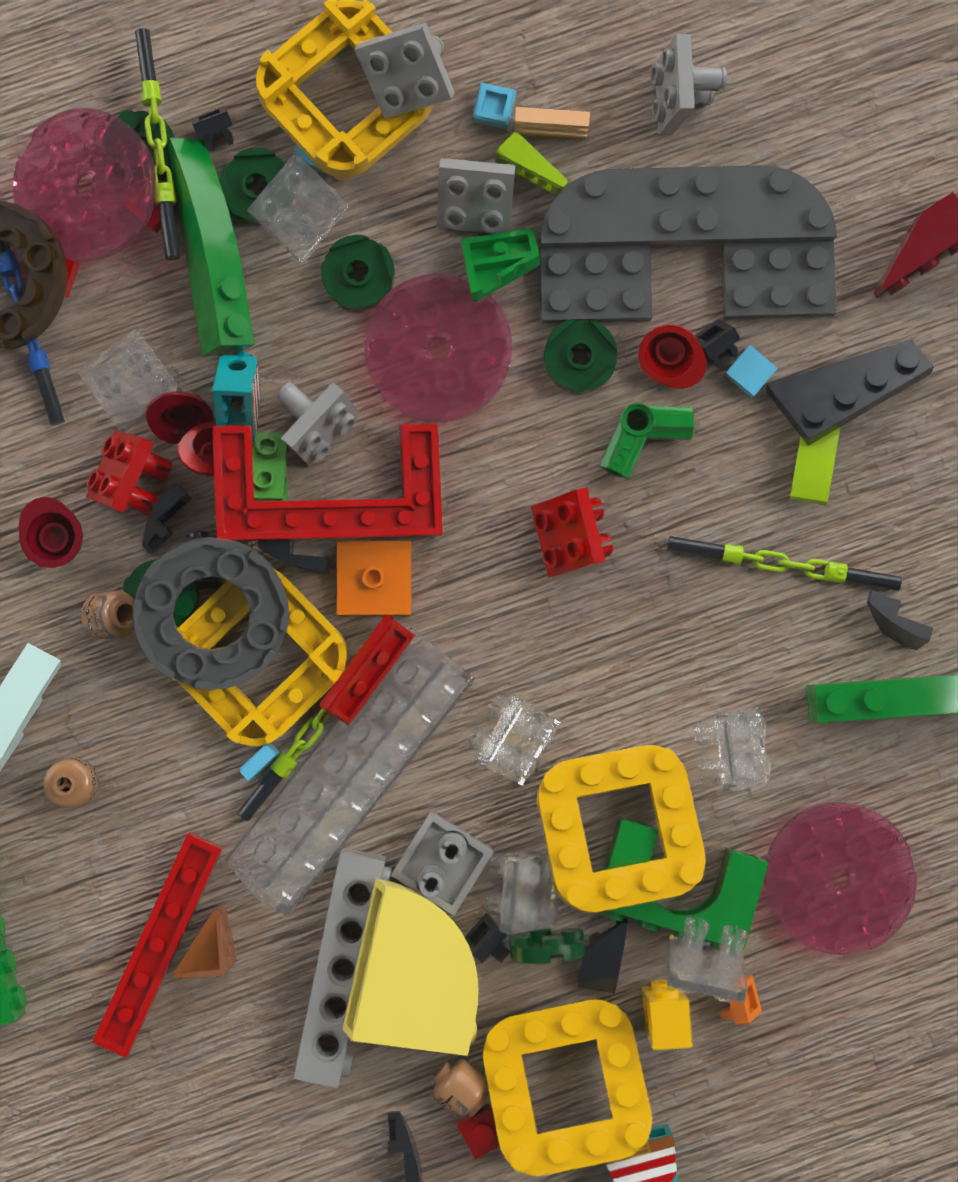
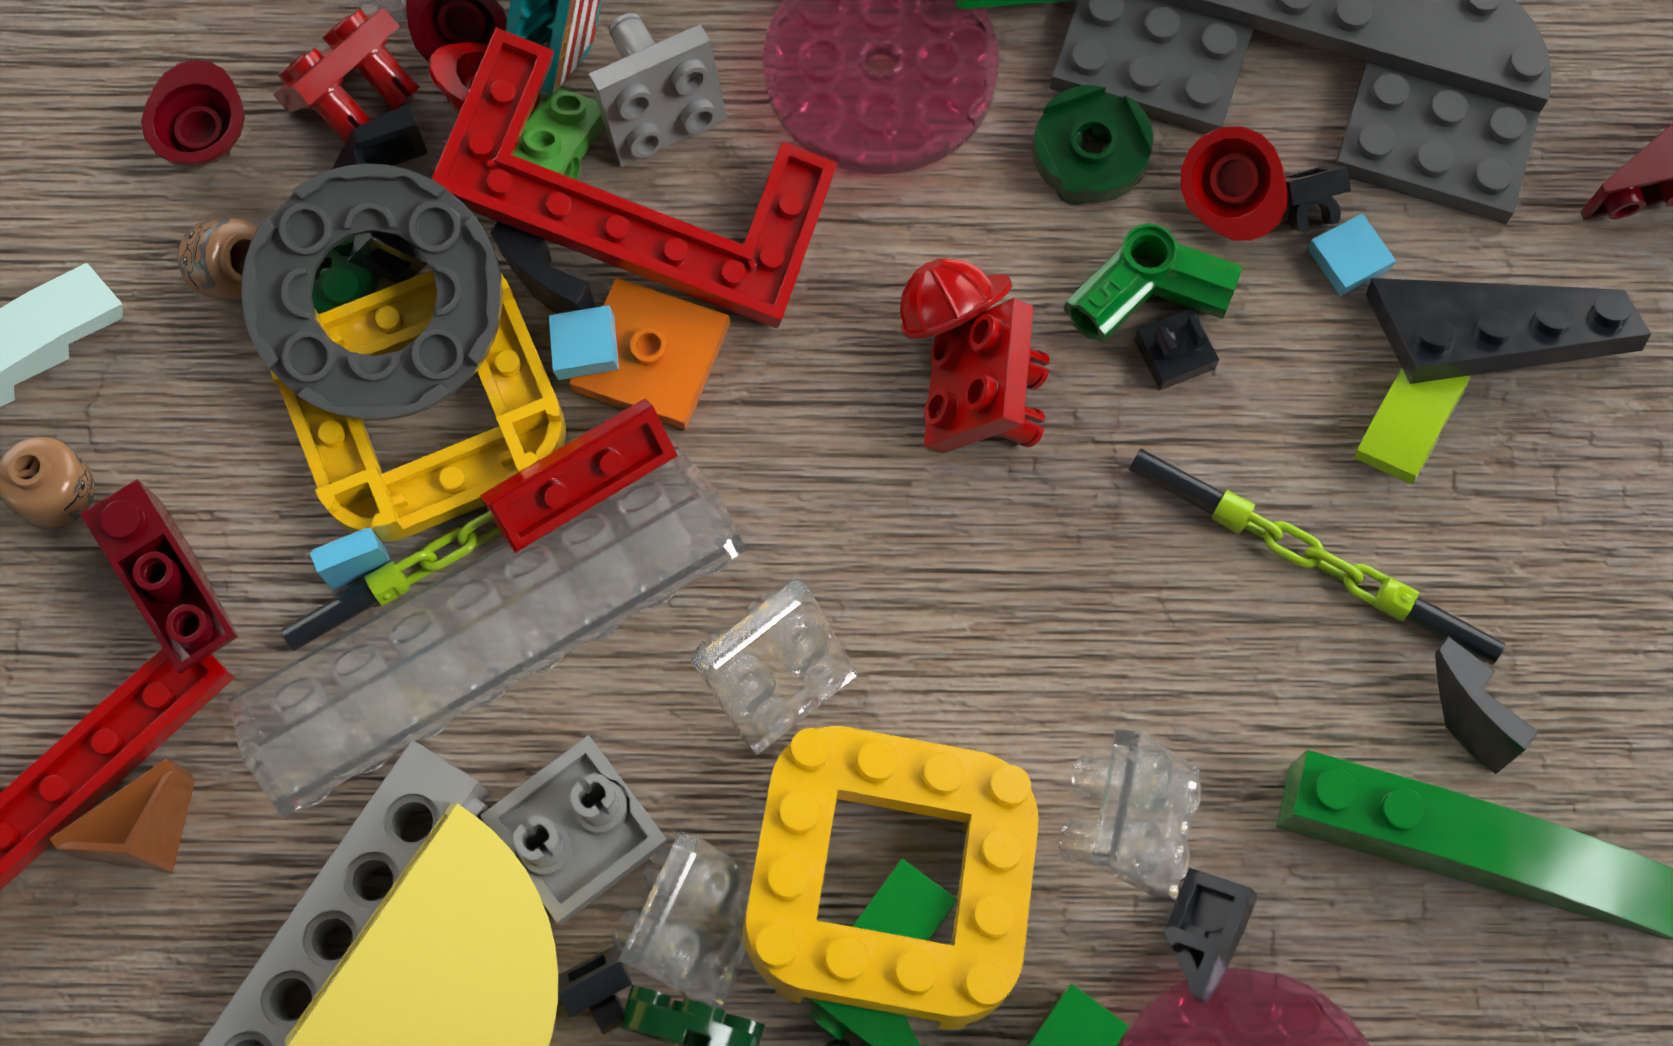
camera: 20 degrees right, 15 degrees down
(163, 812) = (160, 574): none -> dark red slope
(336, 590) = (583, 342): none -> medium azure tile
(535, 490) = (947, 296): none -> red piece
(669, 466) = (1176, 348): none -> black tile
(791, 794) = (1208, 928): none -> black slope

